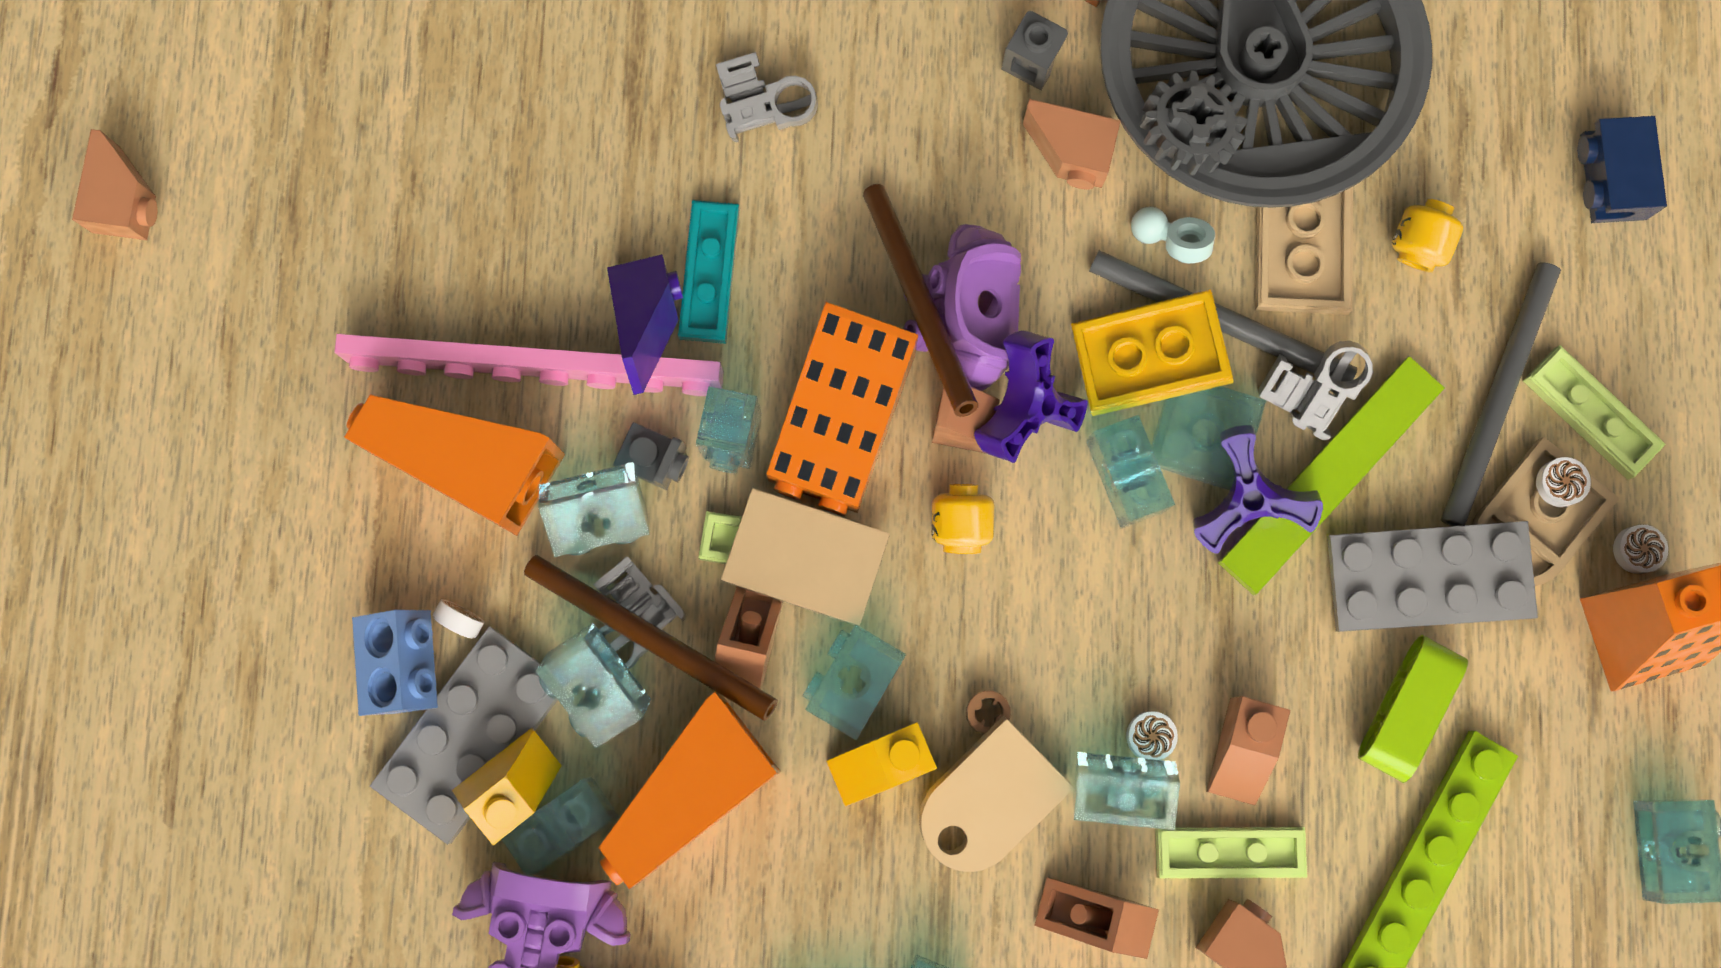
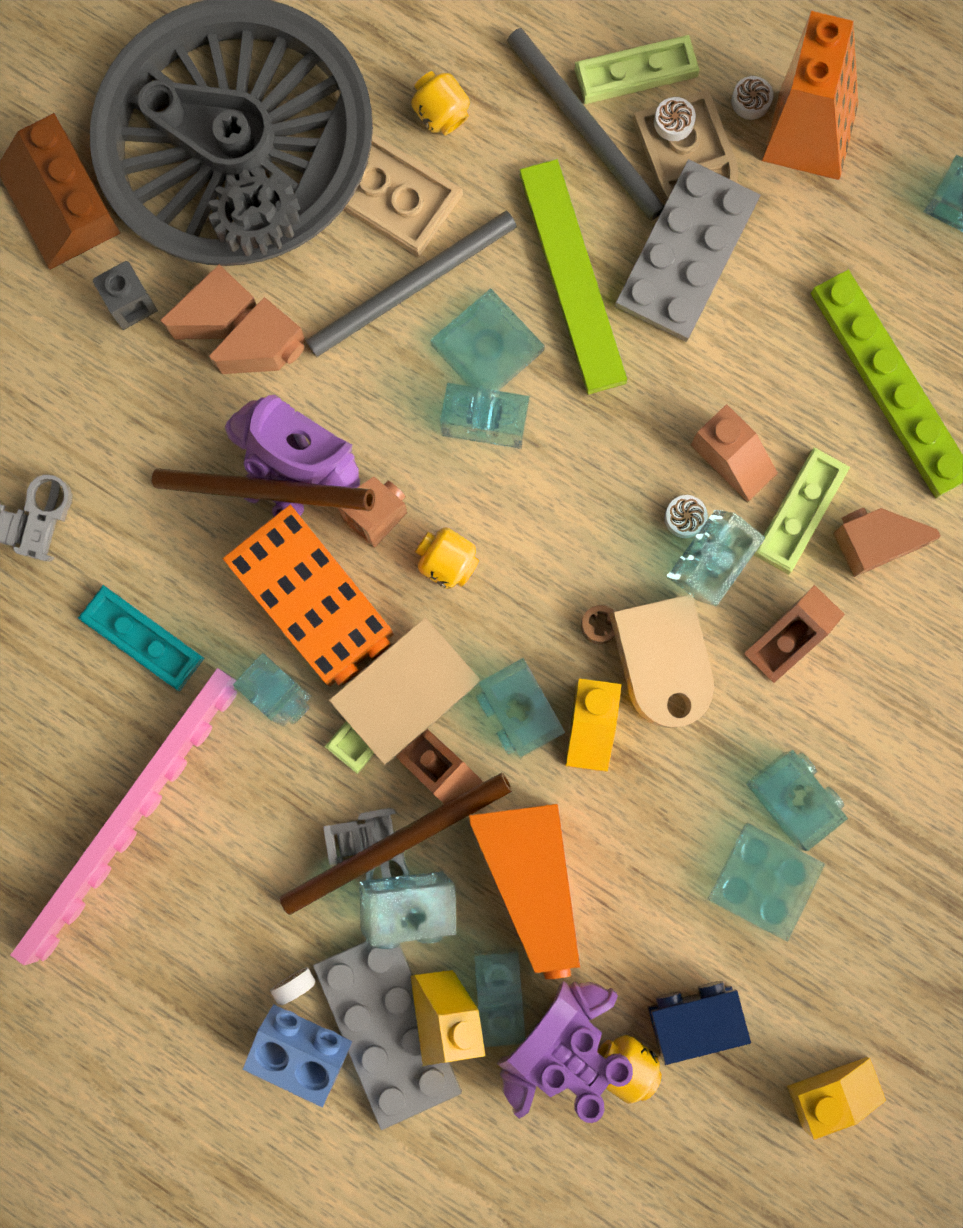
camera: 55 degrees left, 0 degrees up
(465, 458) = (173, 908): orange slope -> none
(570, 504) = (256, 844): clear light blue brick -> none
(644, 314) = (143, 702): dark purple slope -> none
(654, 456) = (257, 764): dark grey bracket -> none
(1028, 399) = (387, 453): dark purple piece -> none
(1068, 207) = (260, 342): none -> nougat slope
(1152, 353) = (406, 347): yellow tile -> none
(1186, 239) = (336, 272): light aqua plate -> none
(1253, 496) = (555, 338): piece -> none
(1312, 396) = (509, 254): piece -> none
(1413, 708) = (773, 320): lime beam -> none

